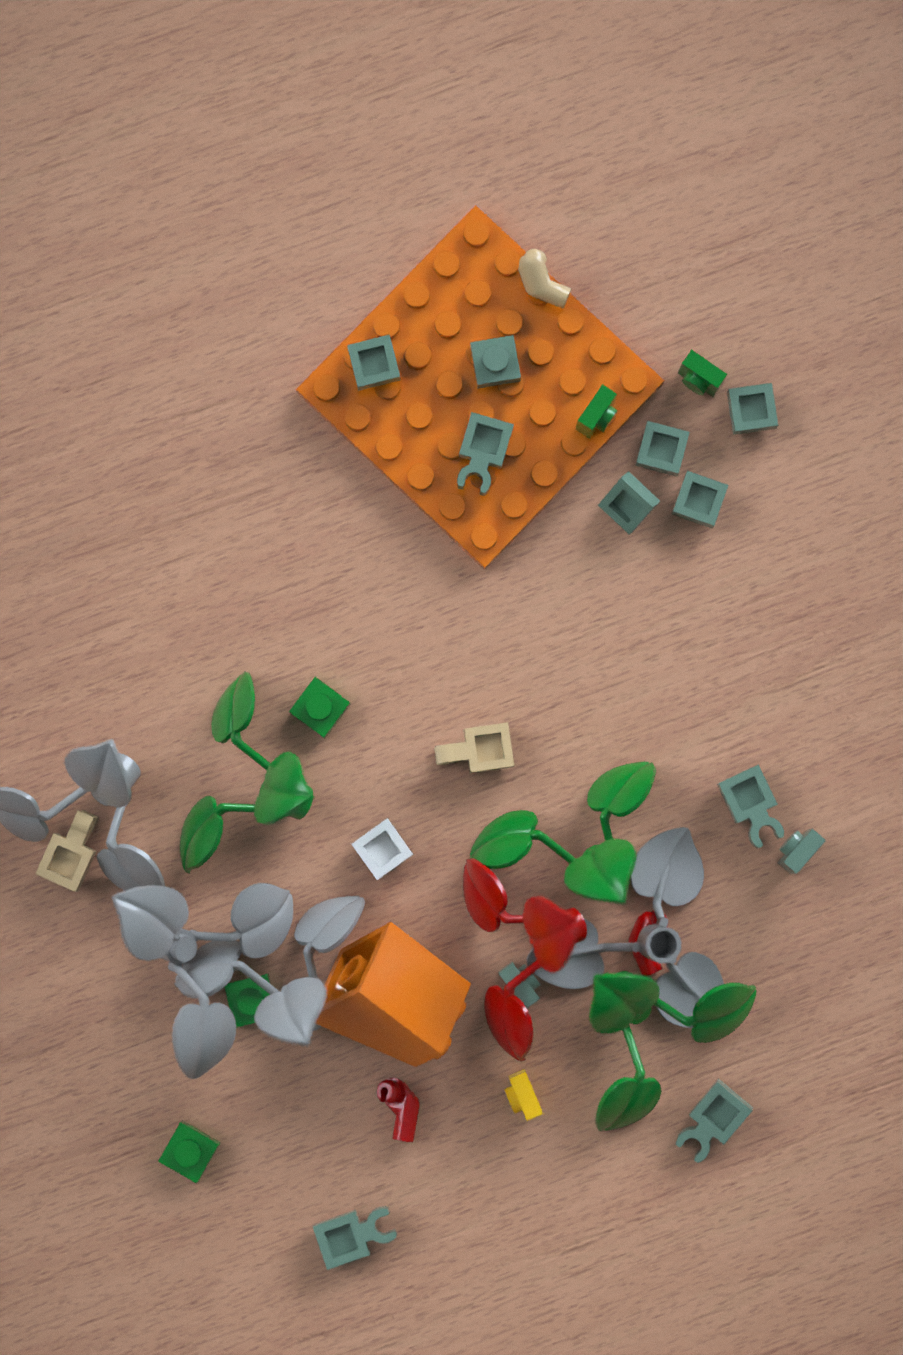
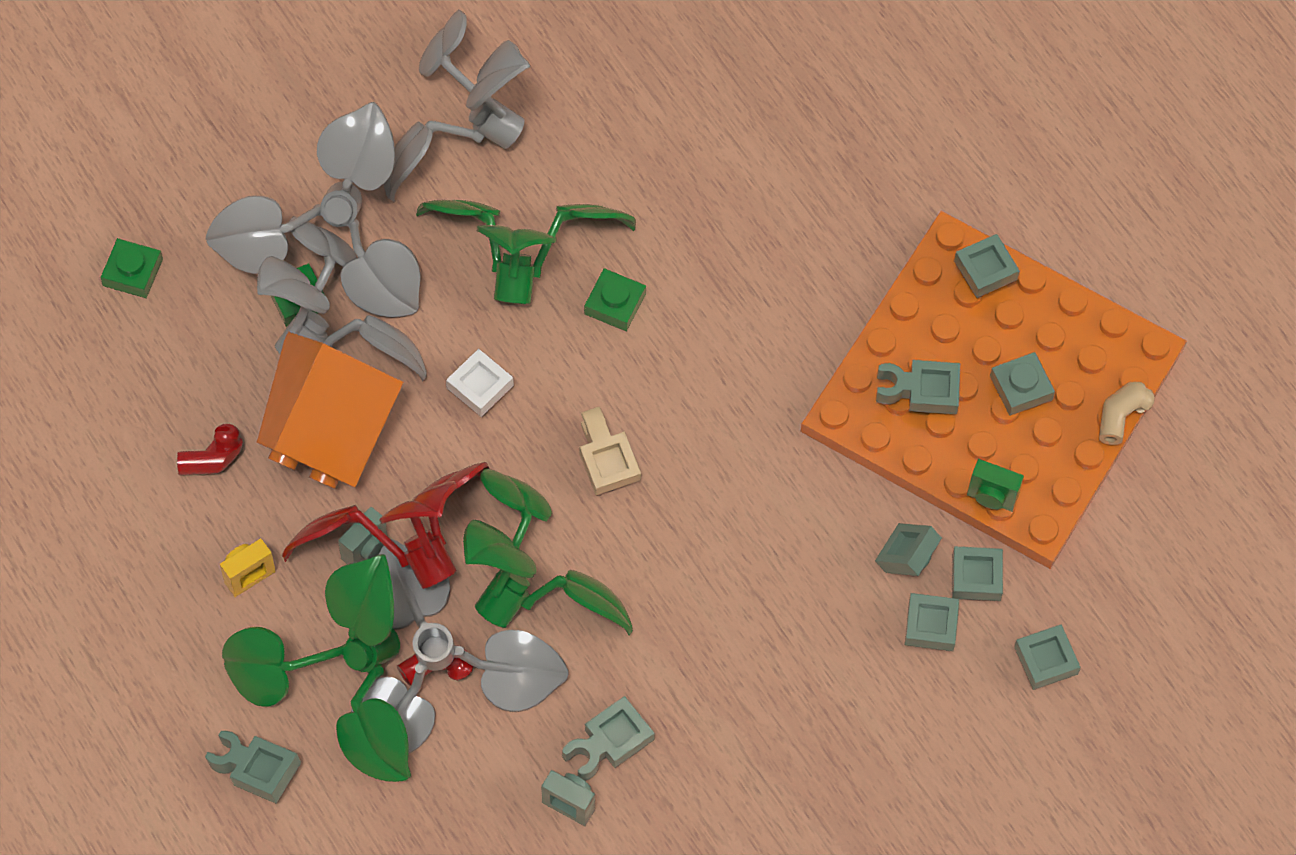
camera: 75 degrees right, 20 degrees down
(67, 857) = (411, 97): tan plate -> none
(346, 1238) = (69, 428): sand green plate -> none
(701, 374) = (1068, 594): green plate -> none

